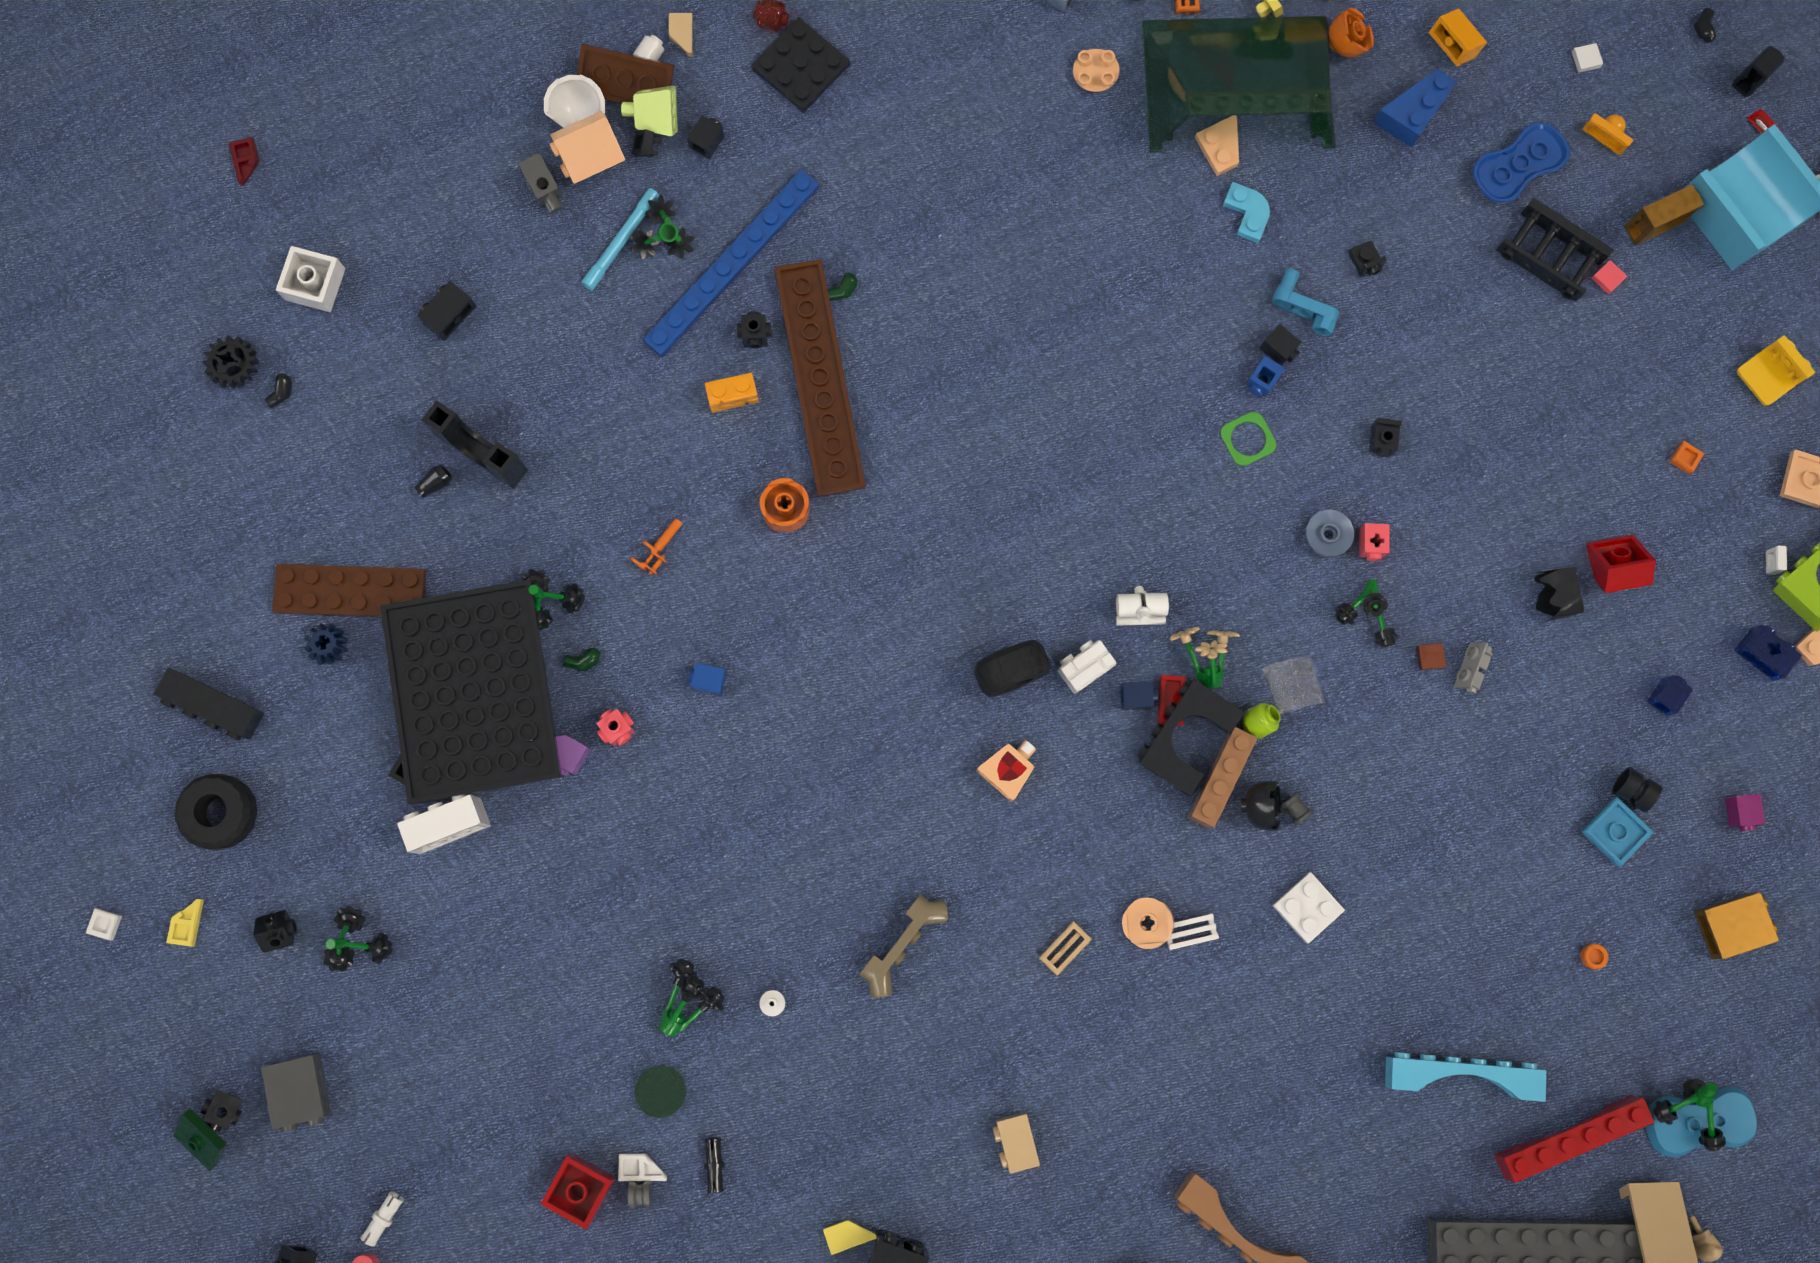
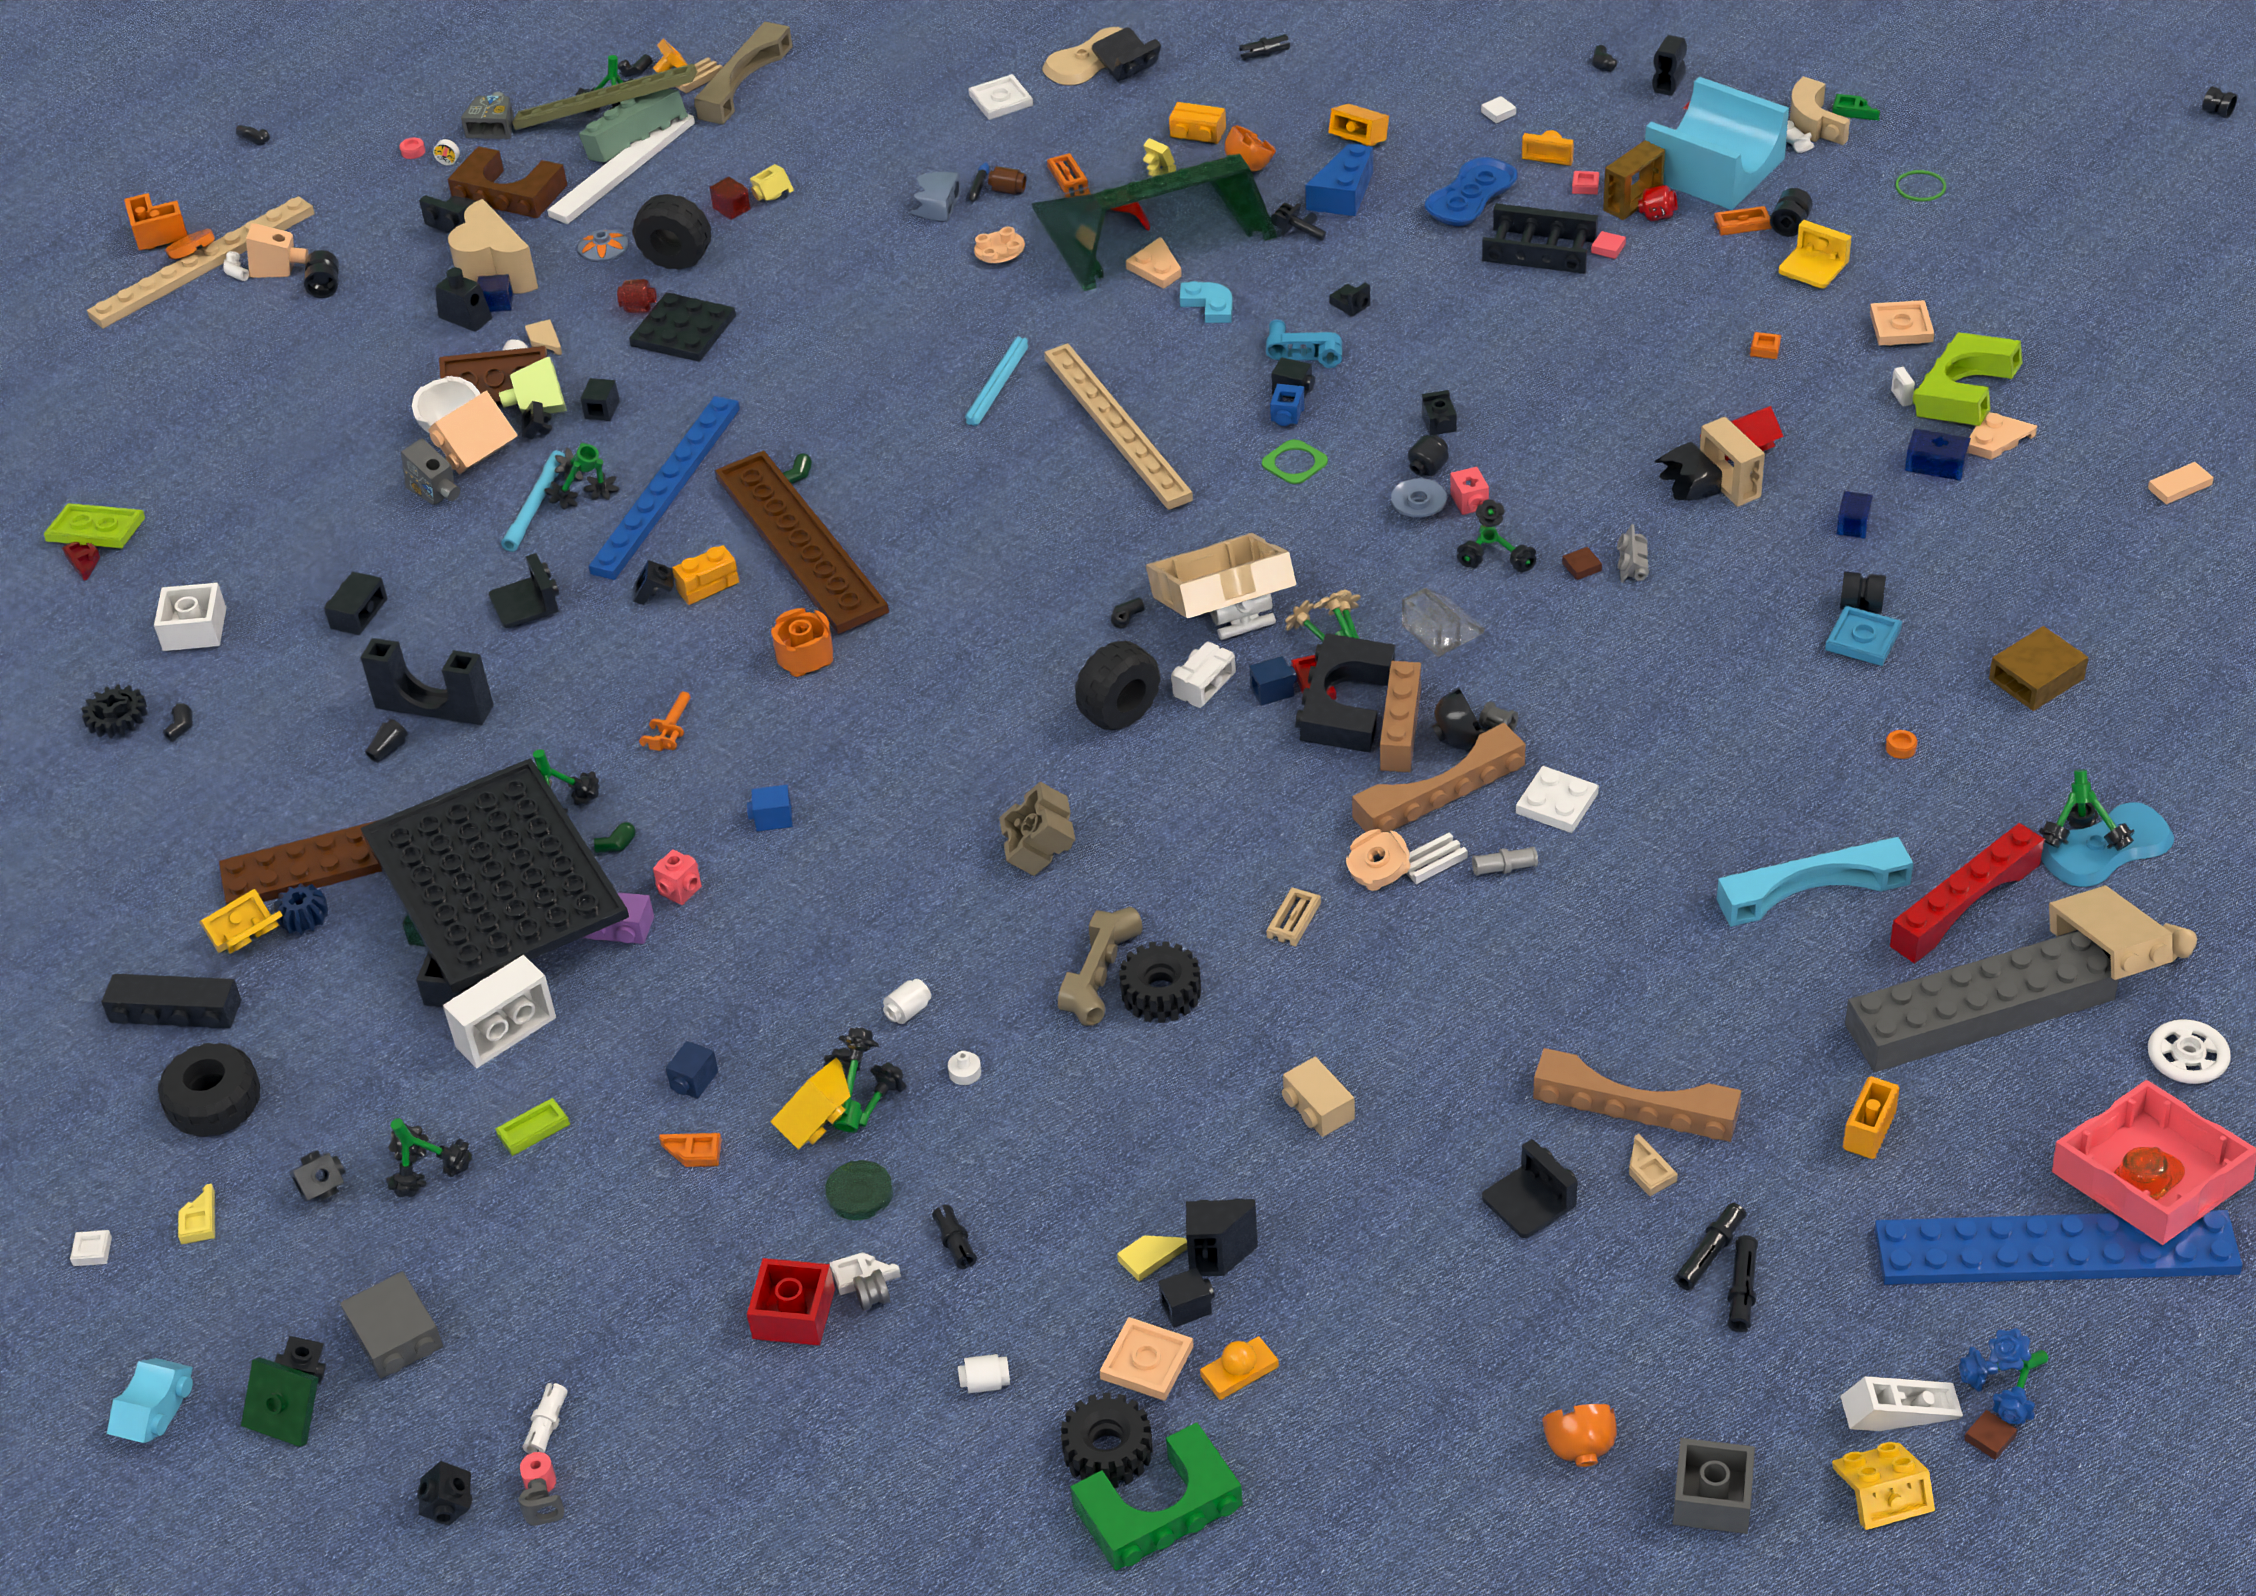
camera: 10 degrees left, 35 degrees down
(113, 1095) = (150, 1400): none -> medium azure brick
(260, 125) = (94, 525): none -> lime tile
(277, 649) = (235, 922): none -> yellow bracket
(444, 933) = (532, 1126): none -> lime tile
(554, 1002) = (693, 1149): none -> orange tile
(571, 931) = (692, 1069): none -> dark blue brick
(582, 357) = (526, 598): none -> black bracket
(648, 1014) = (814, 1106): none -> yellow slope
(688, 383) = (650, 579): none -> black bracket
(749, 924) = (906, 1001): none -> white brick
(754, 330) = (711, 516): black brick -> none
(899, 798) = (1037, 829): none -> dark tan brick
(955, 996) = (1160, 964): none -> black tyre
(1008, 769) = (1152, 782): light nougat torso -> none
(1039, 243) = (996, 381): none -> medium azure axle
(1048, 566) = (1123, 612): none -> black arm
(1118, 342) = (1119, 427): none -> tan plate
(1135, 579) = (1220, 575): none -> tan tile
(1243, 960) = (1504, 861): none -> light grey pin
(1261, 720) = (1422, 651): lime head -> none
(1275, 847) = (1393, 806): none -> medium nougat arch
(1350, 136) = (1286, 218): none -> black arm
(1356, 485) = (1428, 455): none -> black head
(1600, 602) = (1723, 439): none -> tan window
(1623, 186) = (1585, 182): none -> coral tile
(1672, 245) = (1658, 203): none -> red head
(1716, 290) = (1742, 220): none -> orange tile
(1745, 812) = (1990, 577): magenta brick -> none
(1779, 306) = (1790, 211): none -> black wheel

